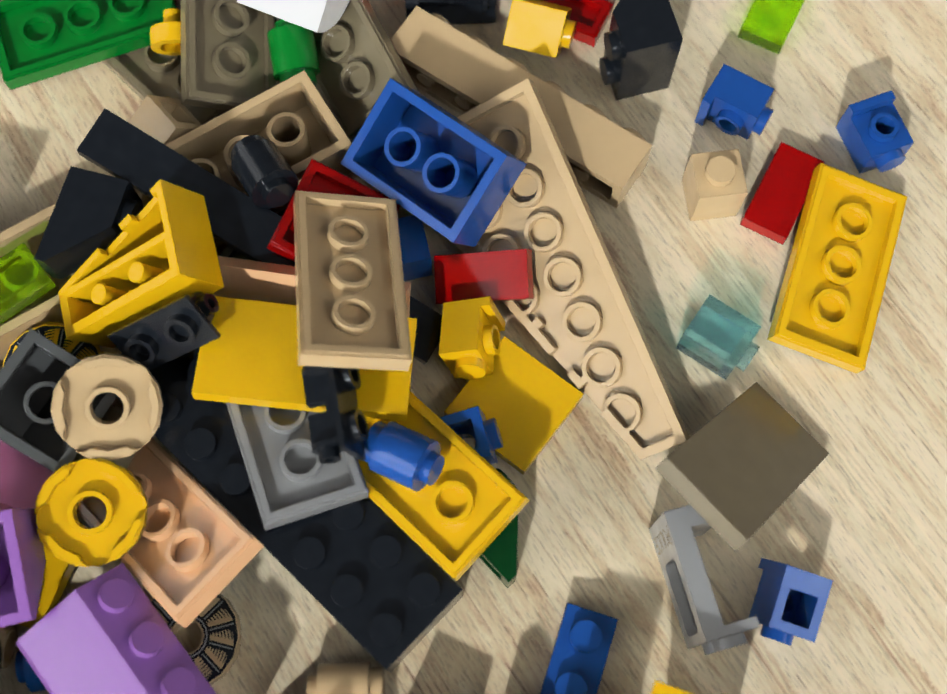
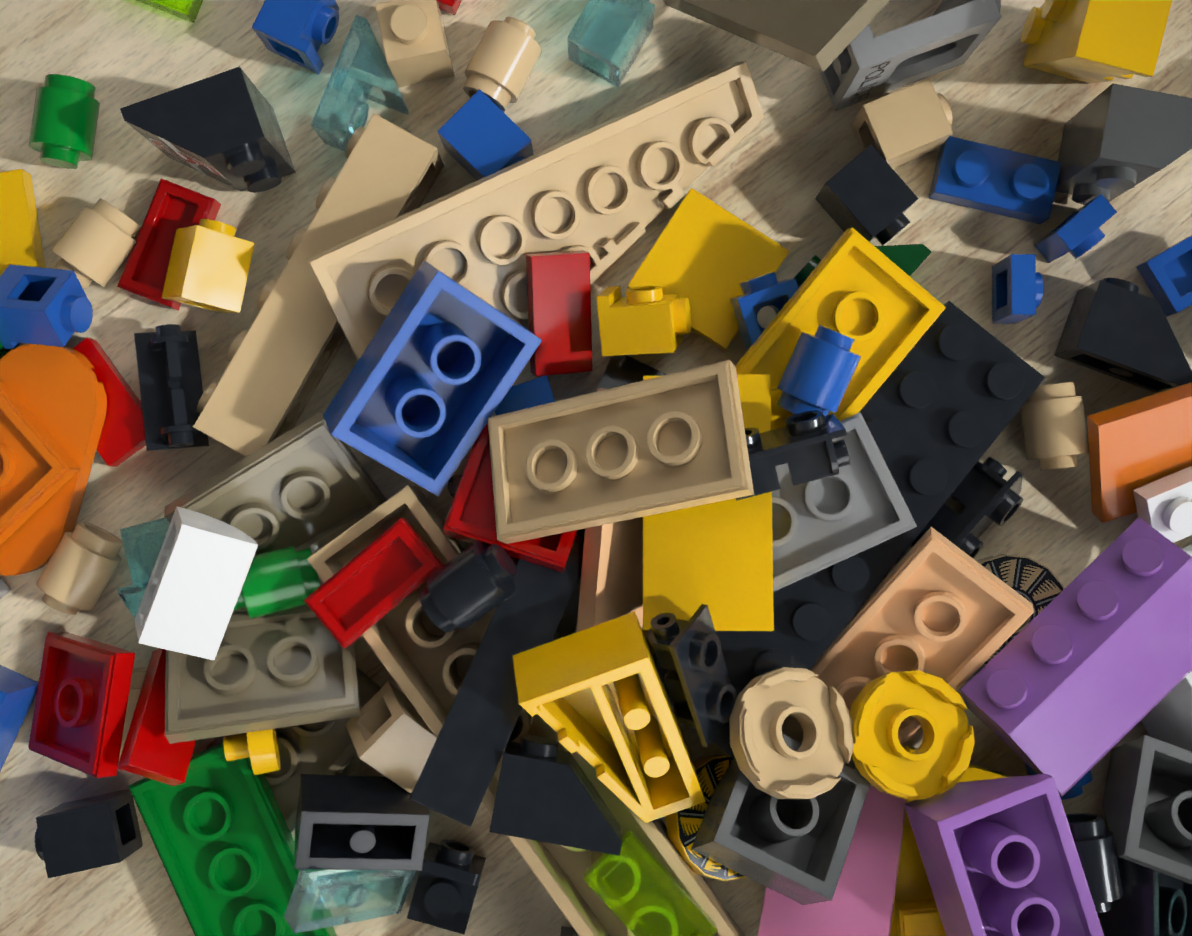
camera: 90 degrees left, 15 degrees up
(42, 166) = (447, 885): none -> black bracket
(55, 99) = (345, 896): none -> clear light blue slope
(98, 80) = (358, 824): none -> black brick
(278, 112) = (373, 583): none -> red tile
(285, 624) = (985, 499): none -> black hinge
(473, 668) = (1015, 289): none -> blue plate
(562, 539) = (868, 197): none -> black brick
(627, 577) = (905, 123): none -> tan brick
(631, 231) = (484, 138): none -> blue brick
(676, 136) = (357, 76): none -> clear light blue slope
(693, 250) = (503, 61): none -> tan brick

